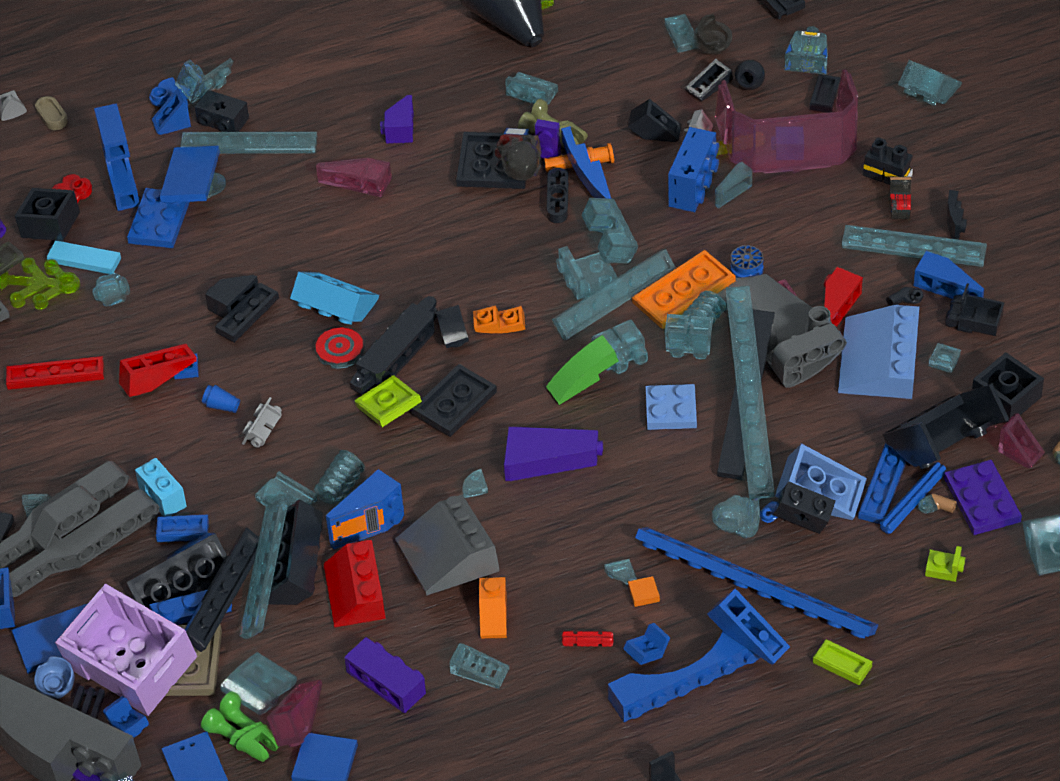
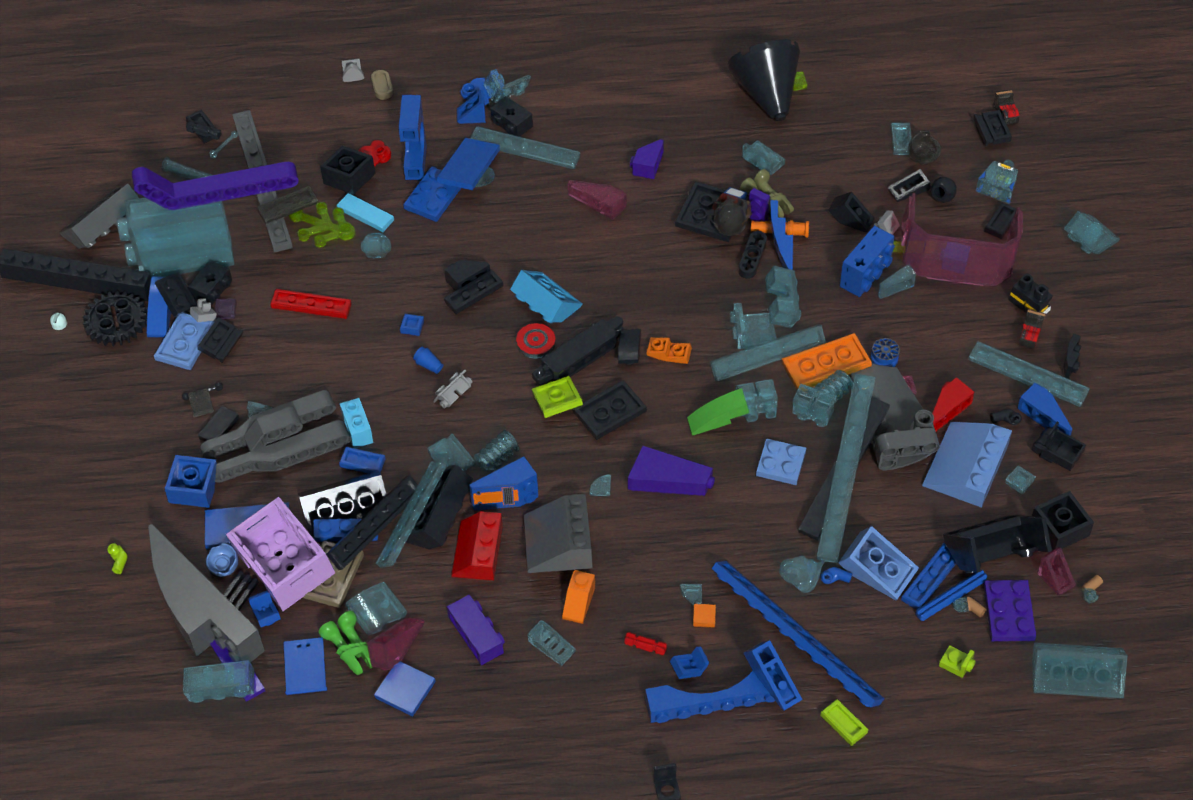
camera: 15 degrees right, 5 degrees up
(152, 369) = (381, 322): red slope -> none
(804, 507) = (856, 580): black brick -> none

